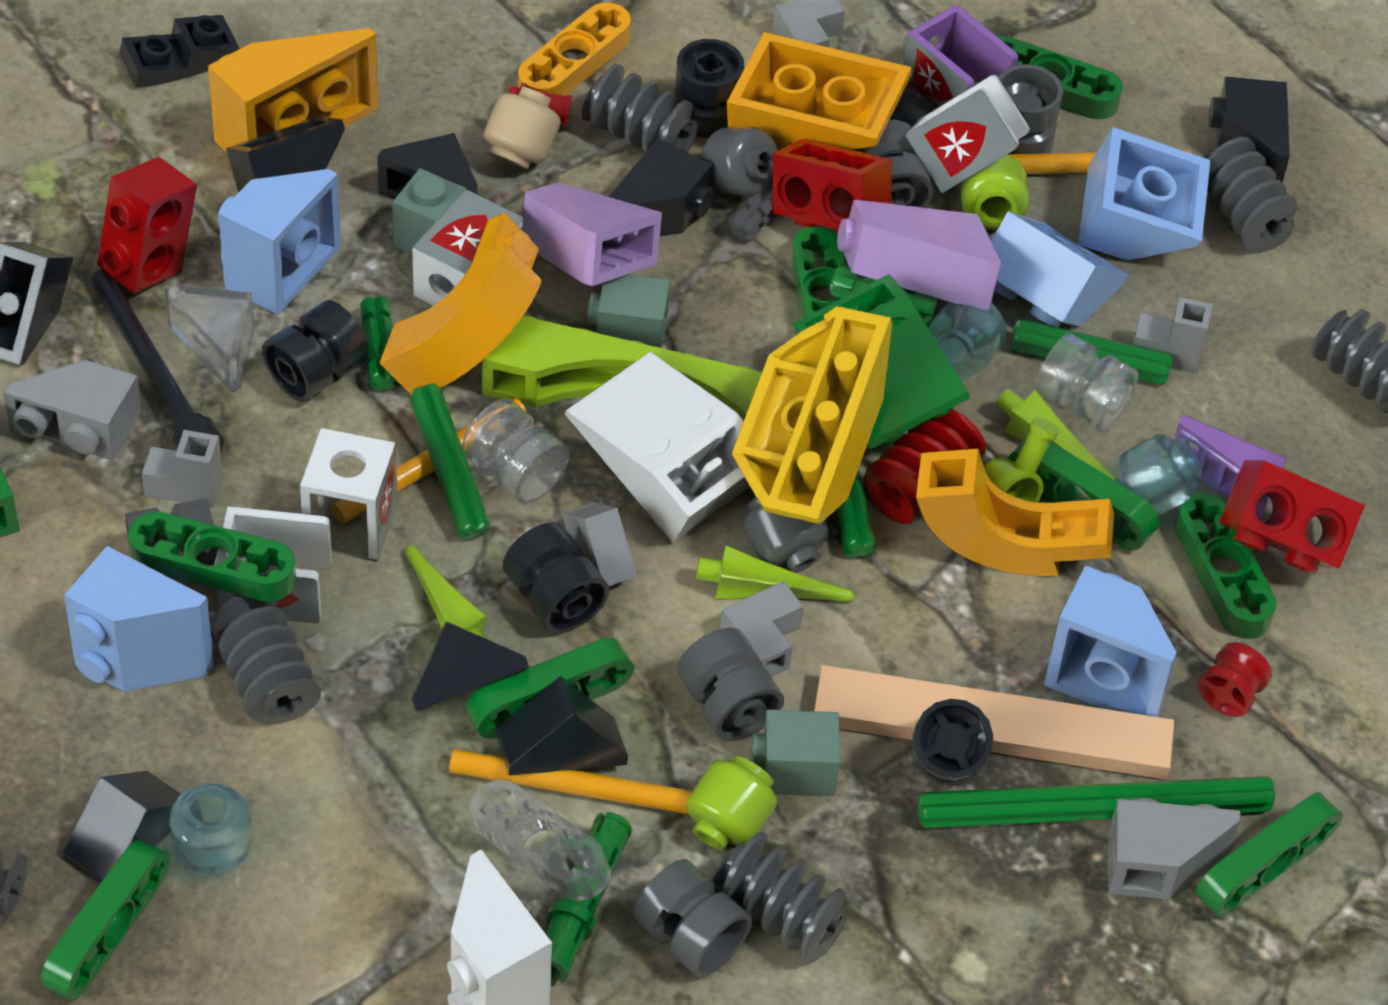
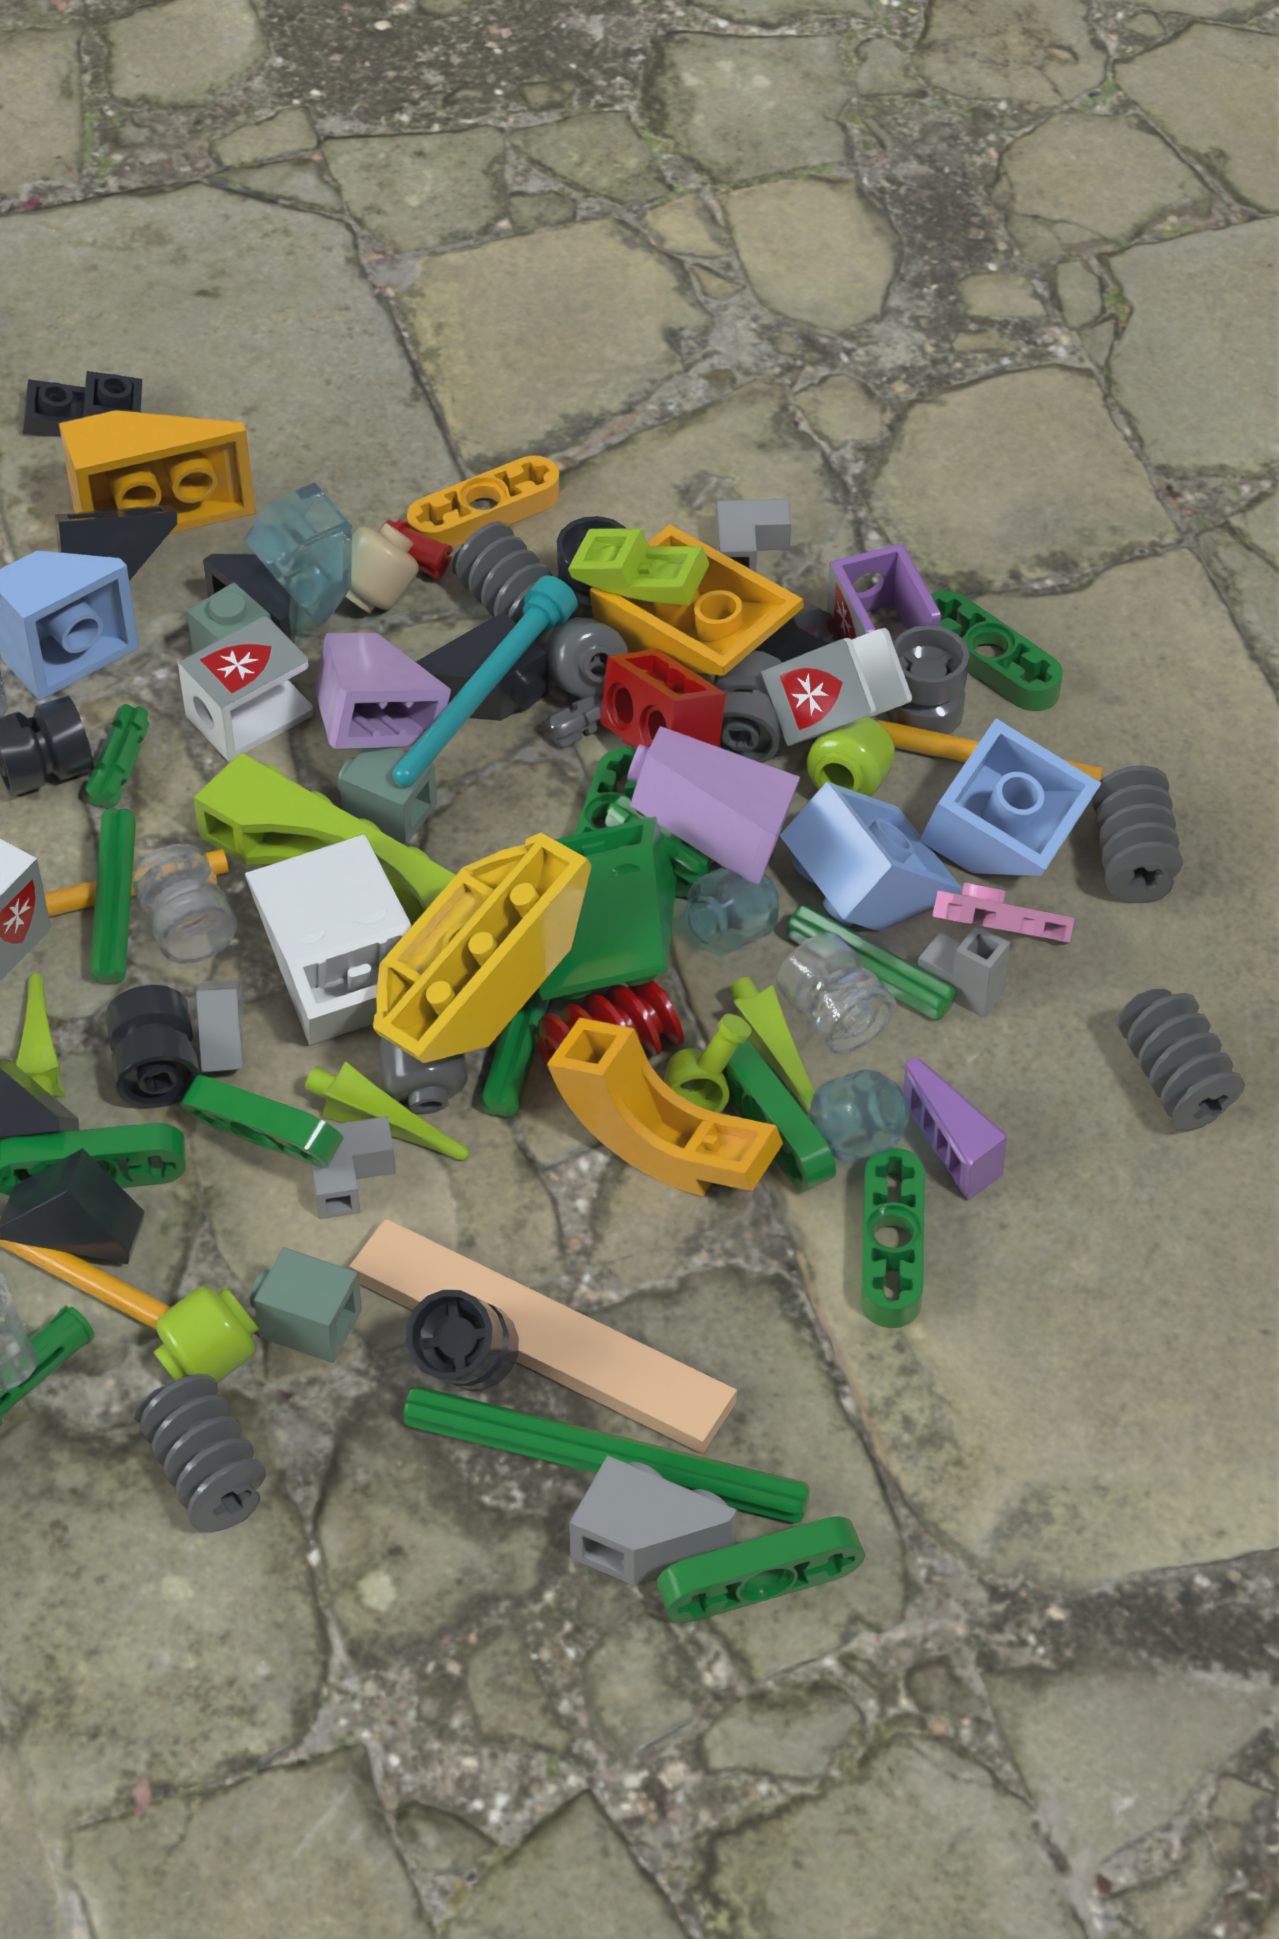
camera: 25 degrees right, 0 degrees up
(471, 318) = (208, 744): light orange arch -> none
(475, 127) = (306, 549): none -> clear light blue slope
(685, 612) = (262, 1121): none -> green beam
(697, 125) = (546, 607): none -> teal piece
(699, 924) = (95, 1444): dark grey wheel -> none
(729, 683) = (269, 1206): dark grey wheel -> none
(748, 74) = (629, 567): none -> lime slope
(1111, 647) = (683, 1282): light blue slope -> none
(1177, 281) = (987, 907): none -> bright pink wing
(1234, 679) = (827, 1365): red wheel -> none
(1254, 111) = (1195, 753): black slope -> none
(1293, 506) = (986, 1188): red brick -> none

